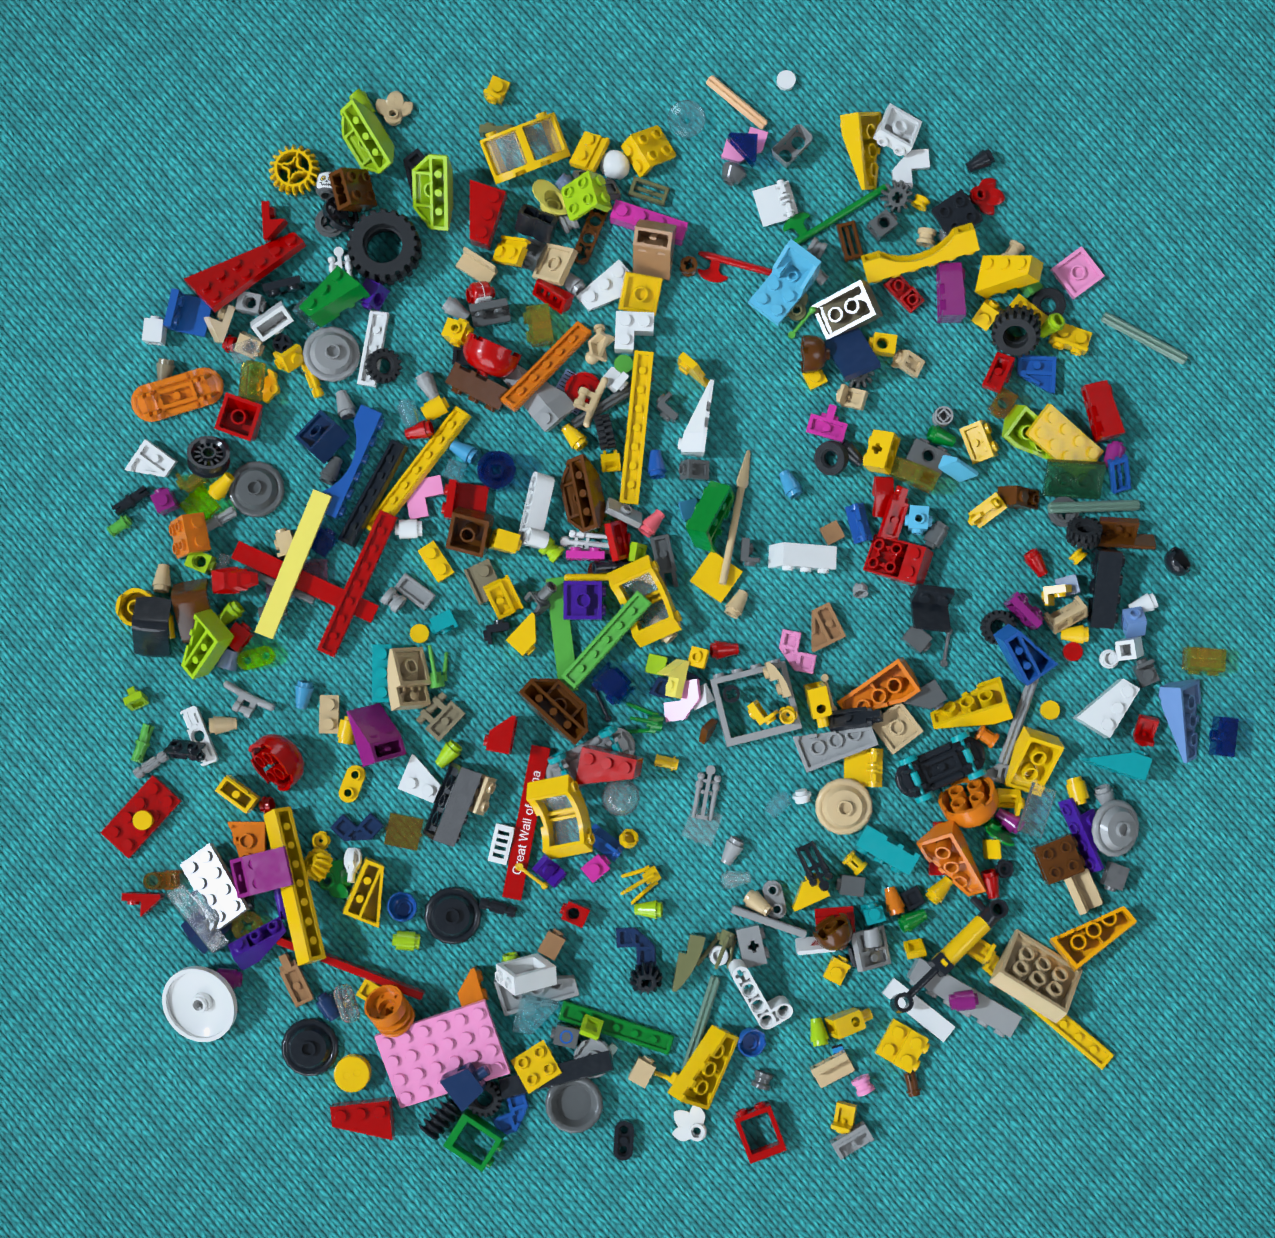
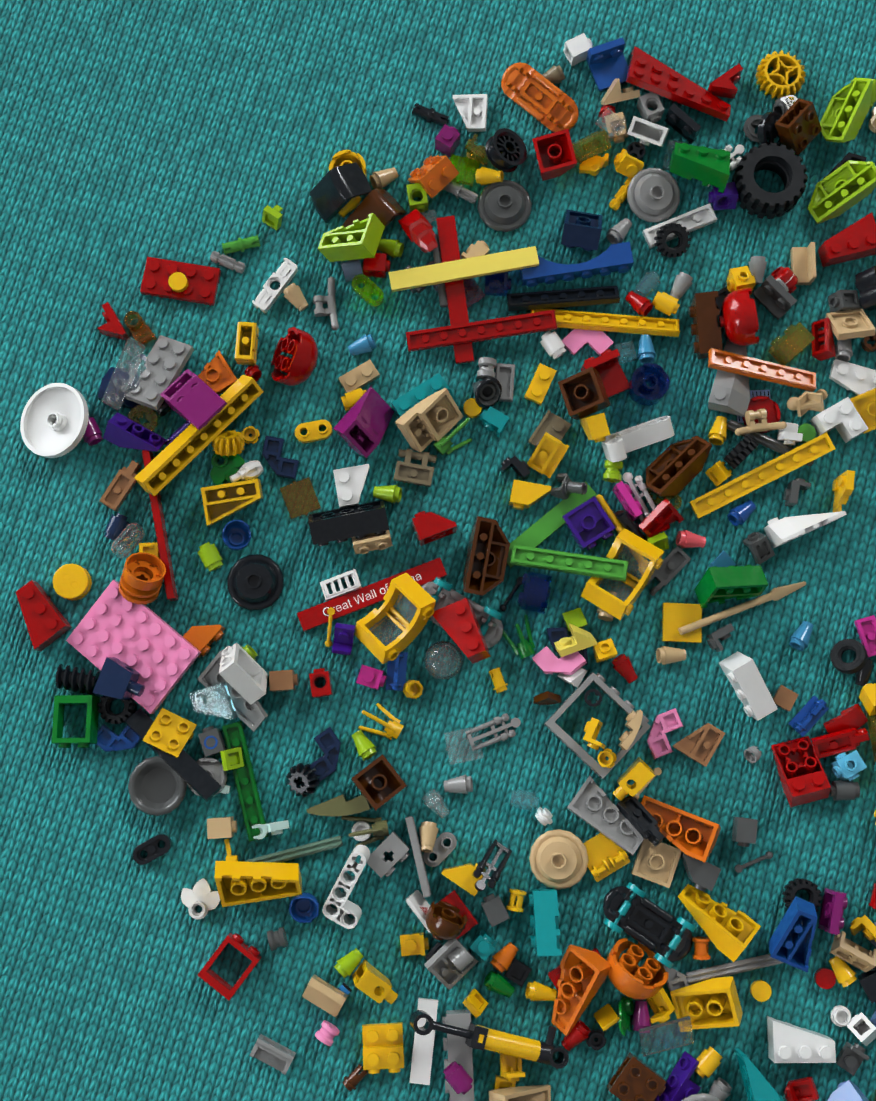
camera: 55 degrees right, 5 degrees down
(118, 526) = (405, 119): bright green pin -> none
(186, 749) = (256, 280): black hinge -> none
(310, 1047) = (73, 533): black piece -> none
(331, 471) = (558, 254): dark grey cone -> none
(415, 613) = (487, 392): none -> dark grey hat
(497, 907) = (285, 615): black axle -> none
(511, 251) = (836, 282): yellow plate -> none
(623, 512) = (684, 510): light grey plate -> none
(670, 1026) = (274, 827): none -> light aqua plate
(688, 916) = (378, 782): none -> reddish brown brick
(844, 1117) = (288, 1034): yellow bracket -> none
(930, 607) = (780, 825): black bracket -> none

